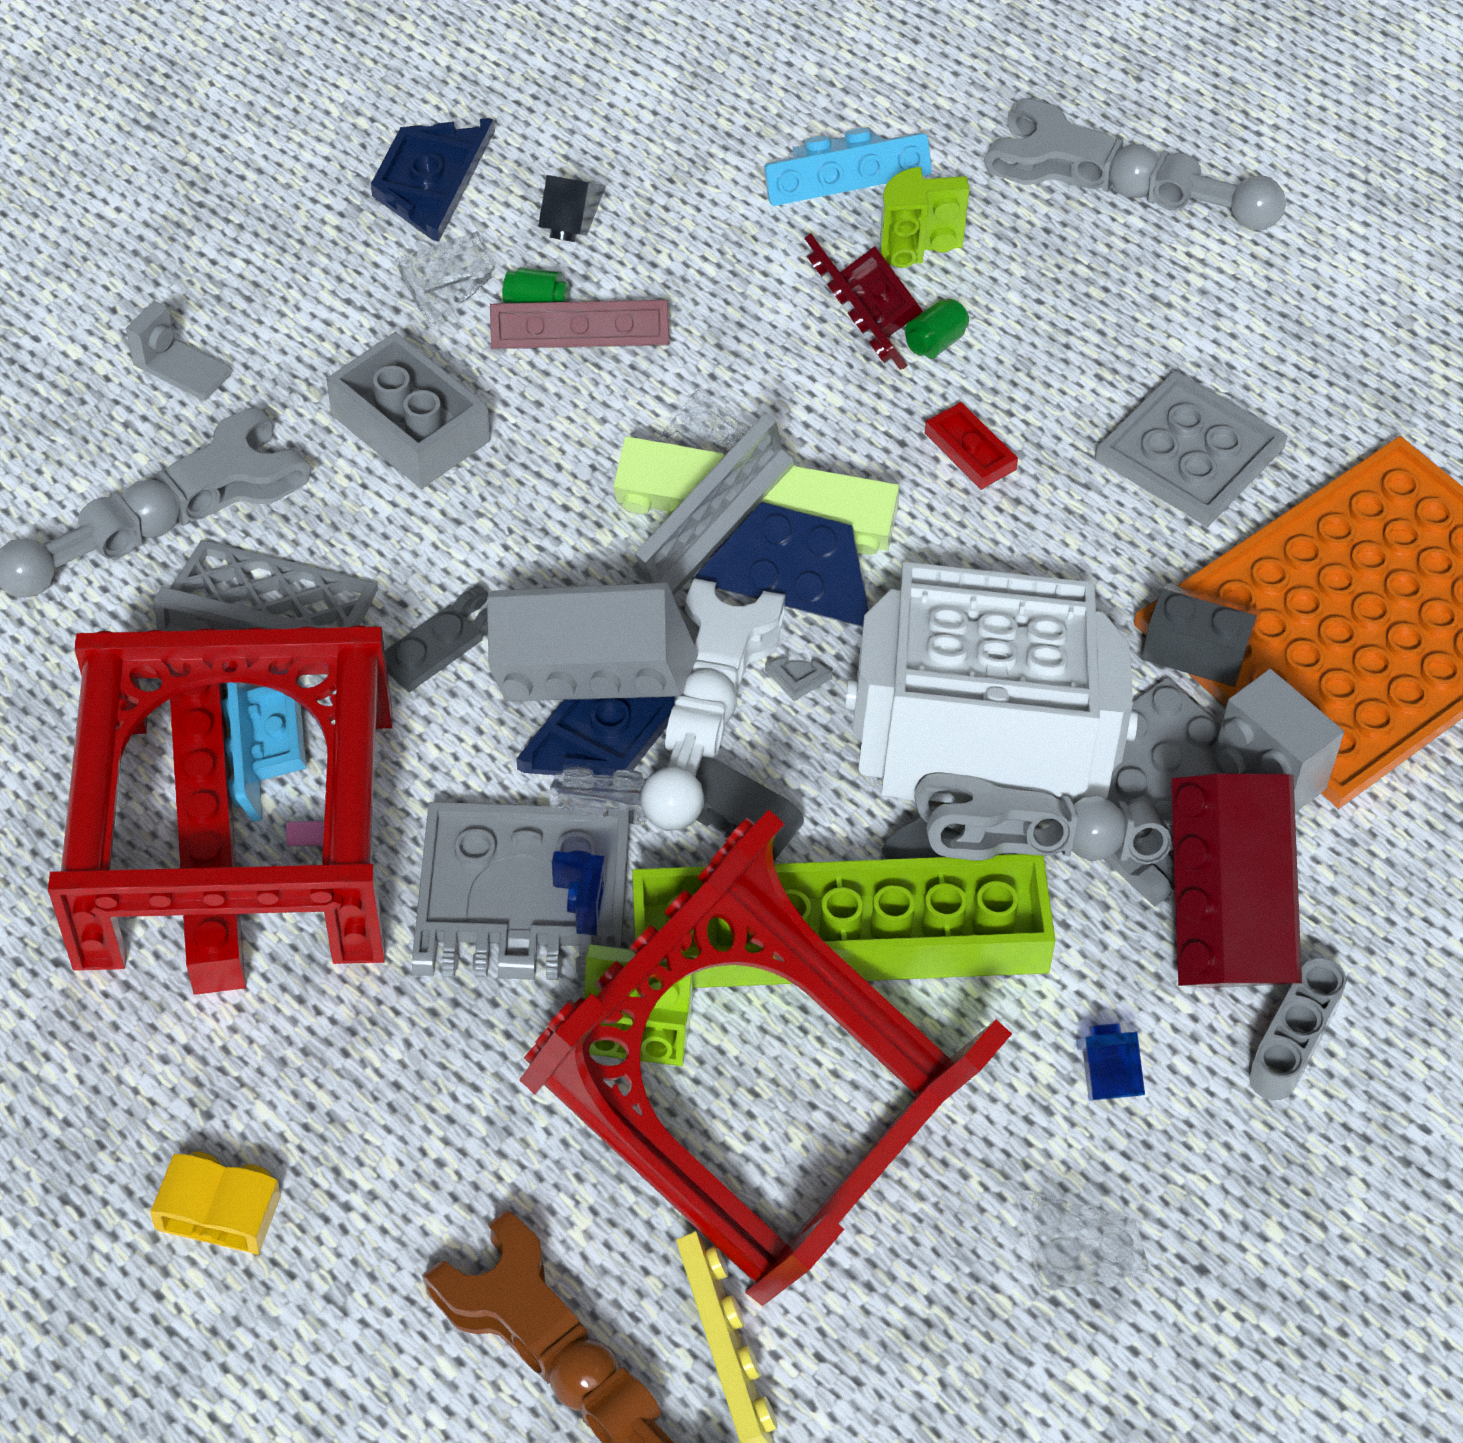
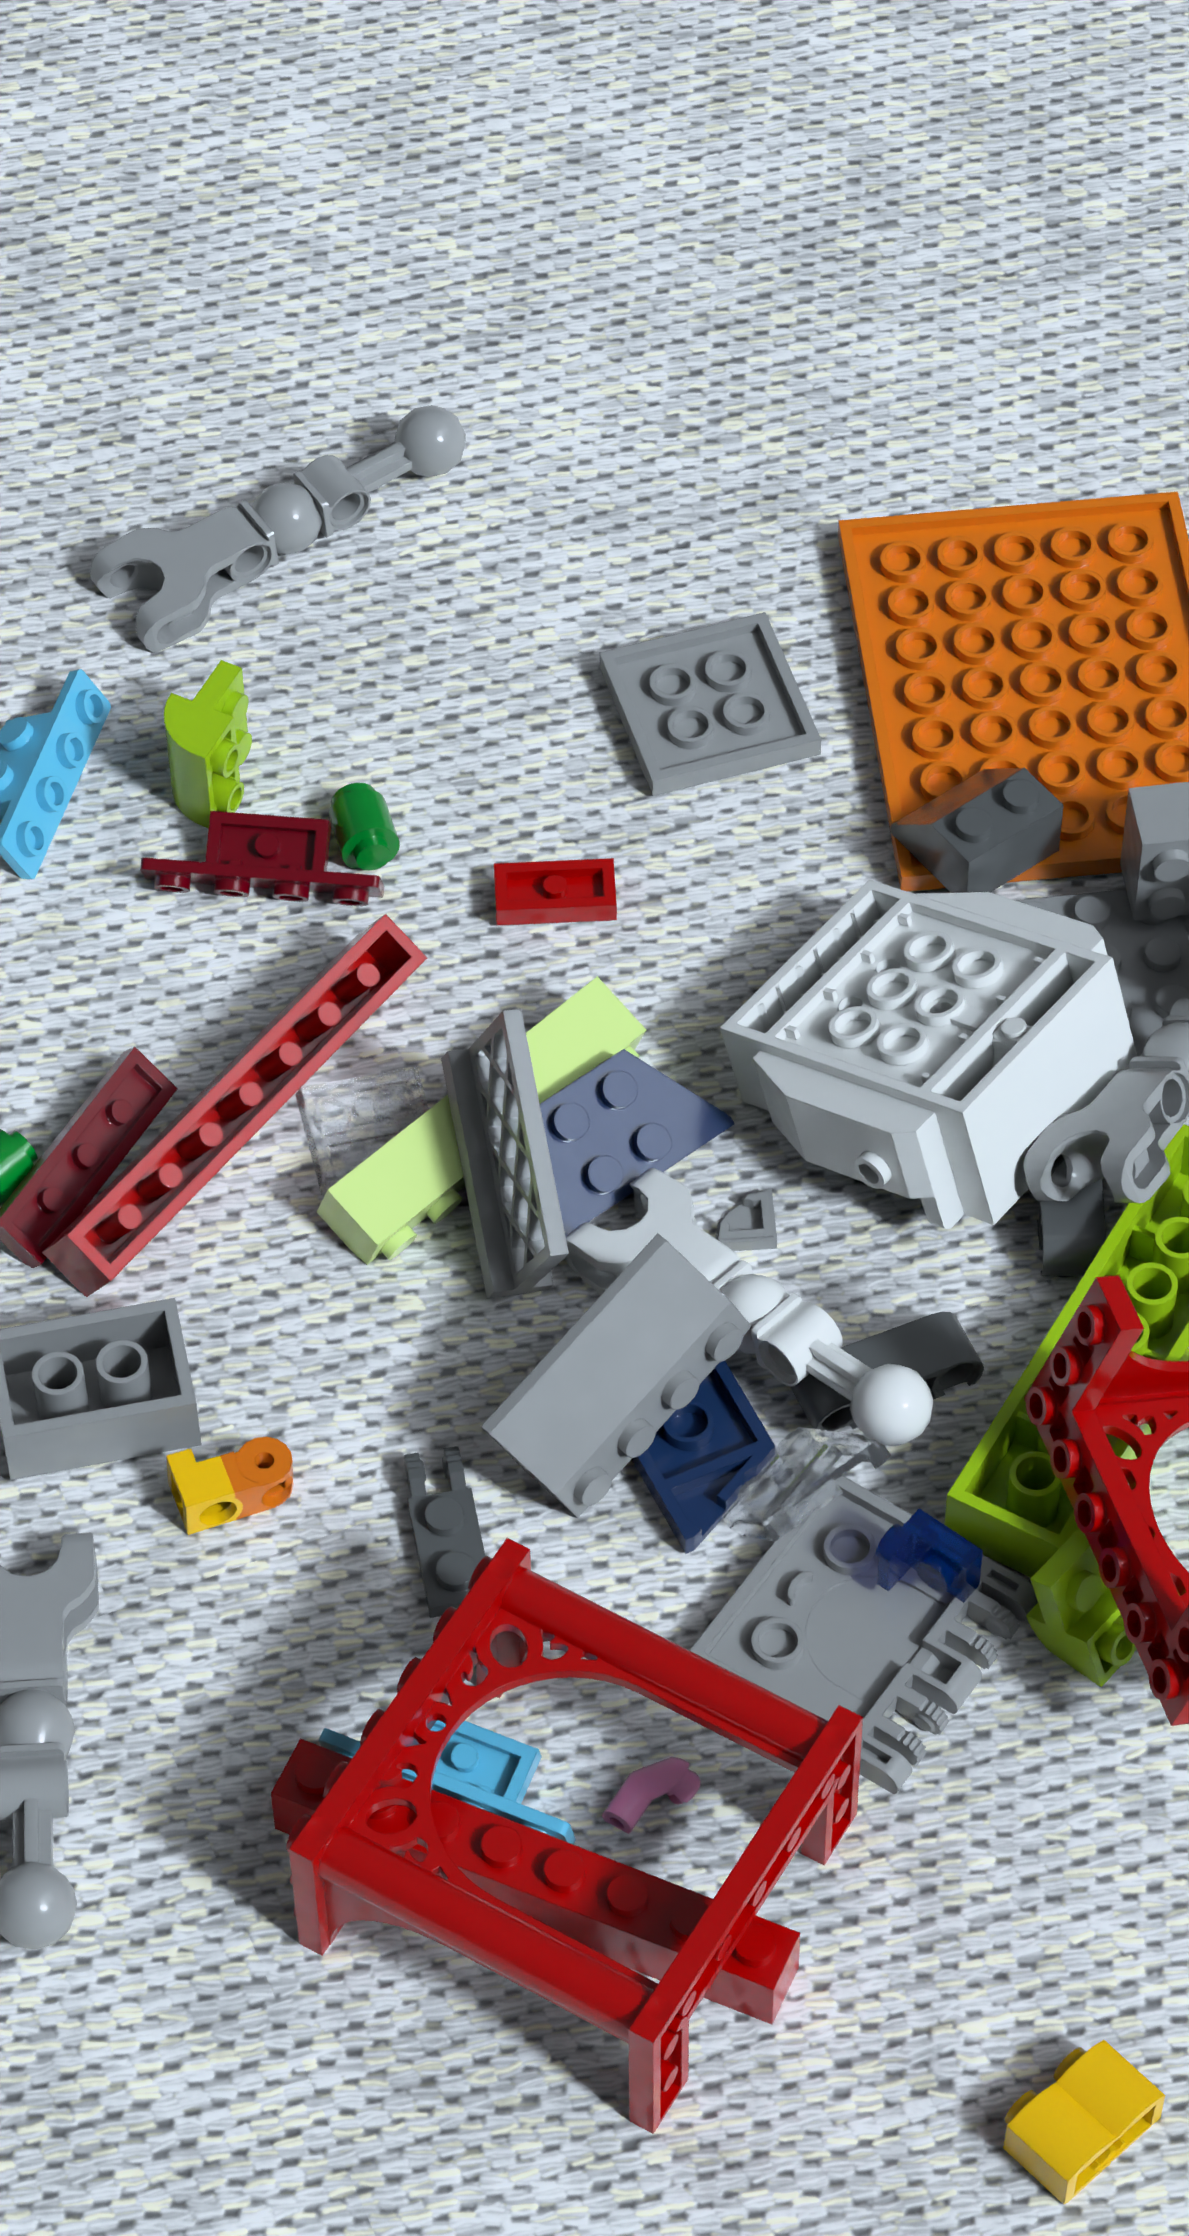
camera: 55 degrees left, 0 degrees up
(189, 612) = (257, 1749): light grey fence -> none
(394, 514) = (230, 1484): none -> leg
(667, 368) = (234, 1106): none -> red brick

